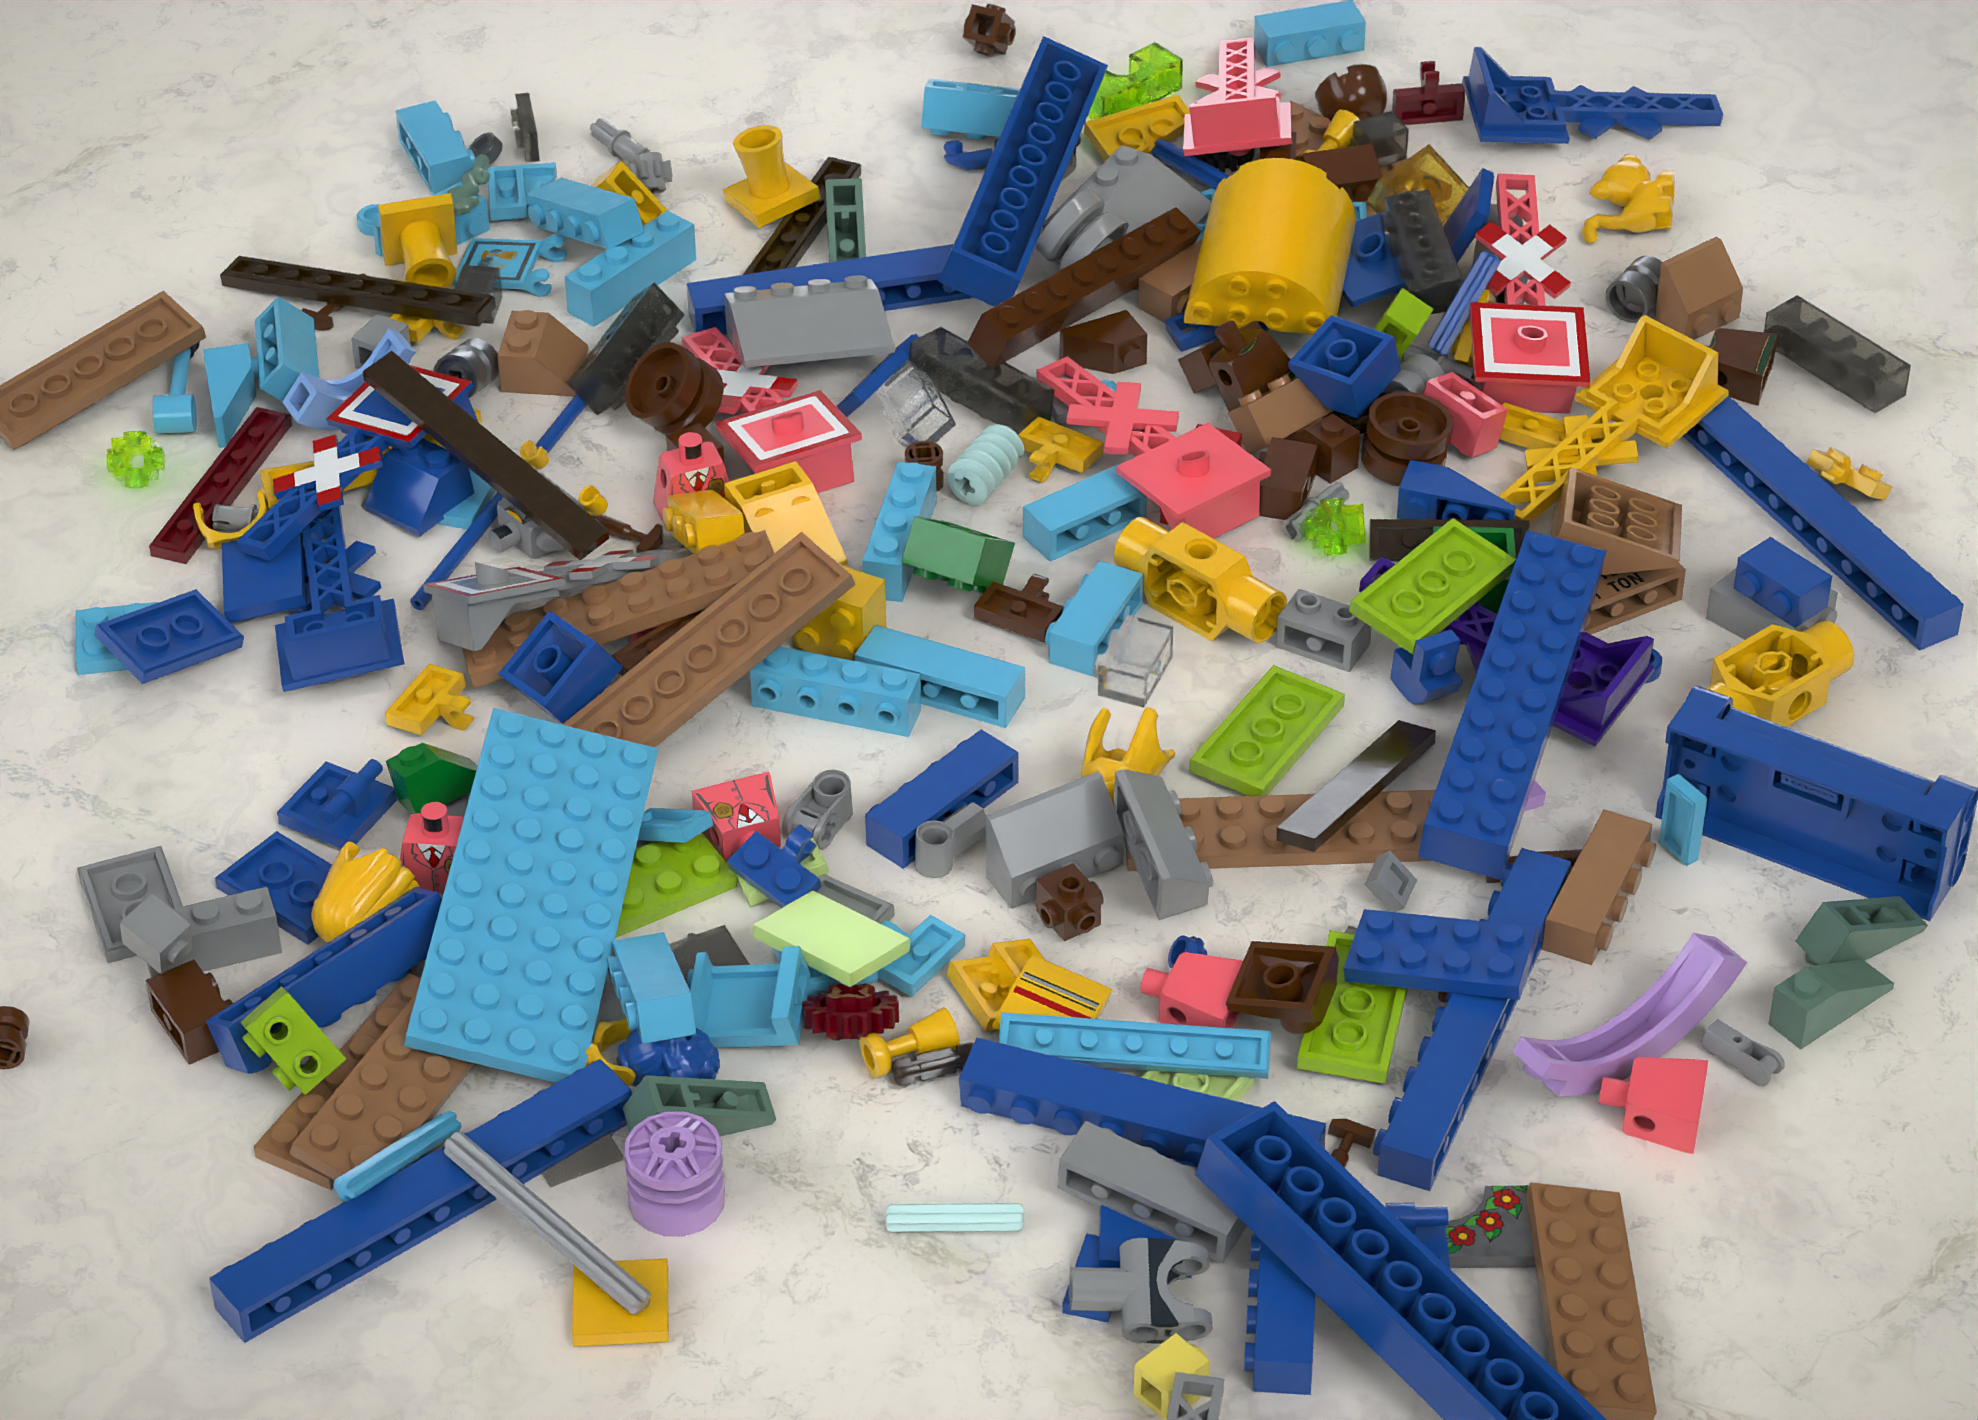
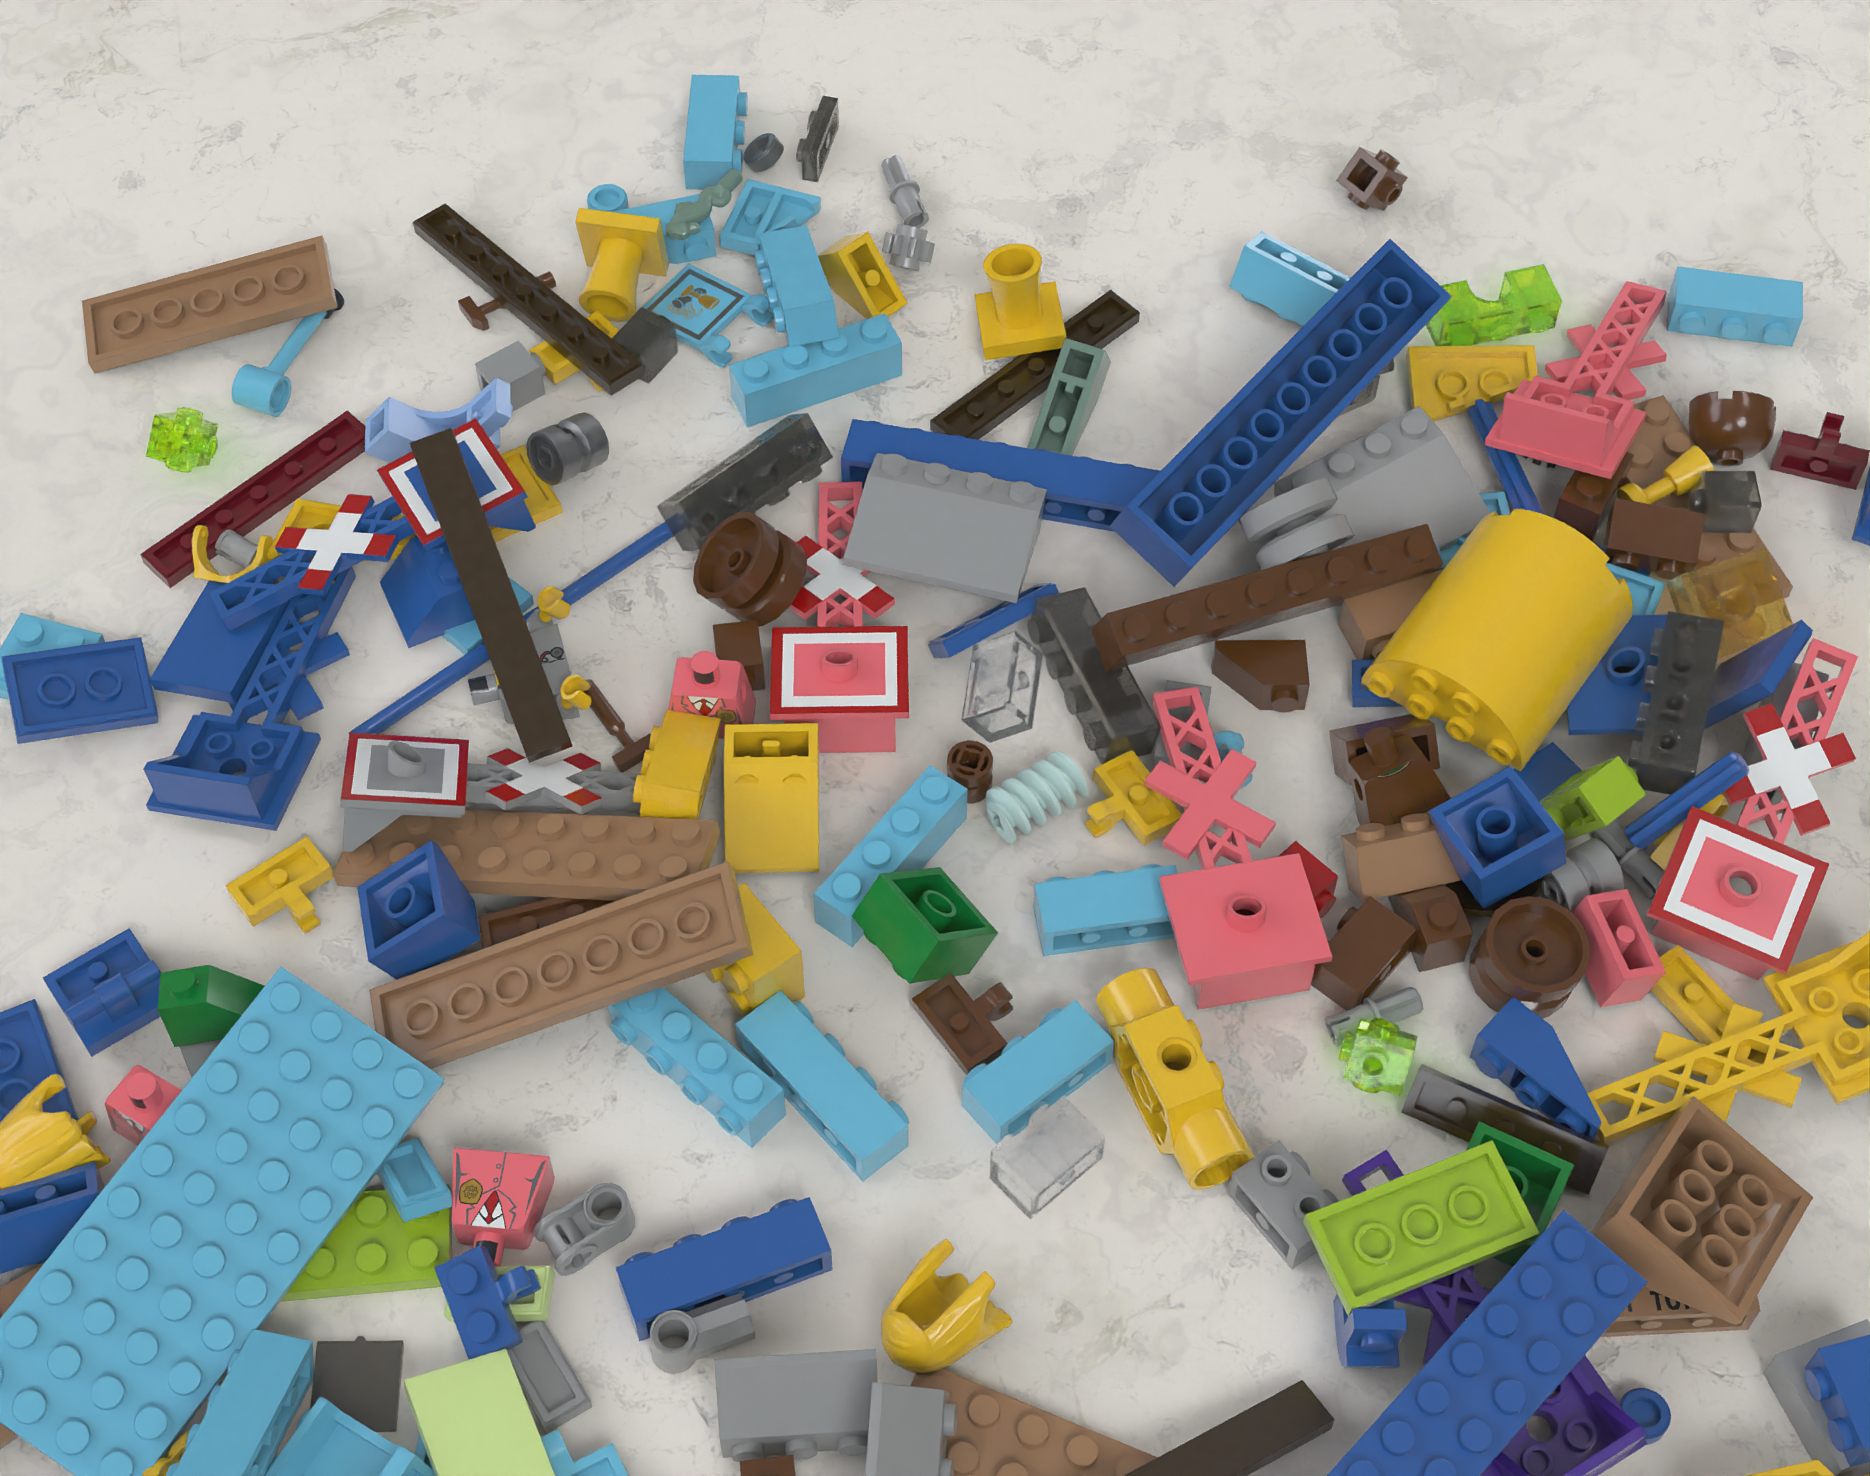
camera: 25 degrees right, 15 degrees up
(231, 386) = (331, 379): medium azure slope -> none
(284, 347) = (408, 352): medium azure brick -> none
(538, 355) = (657, 450): medium nougat slope -> none
(963, 159) = (1254, 342): blue arm -> none
(1267, 732) = (1139, 1331): lime plate -> none

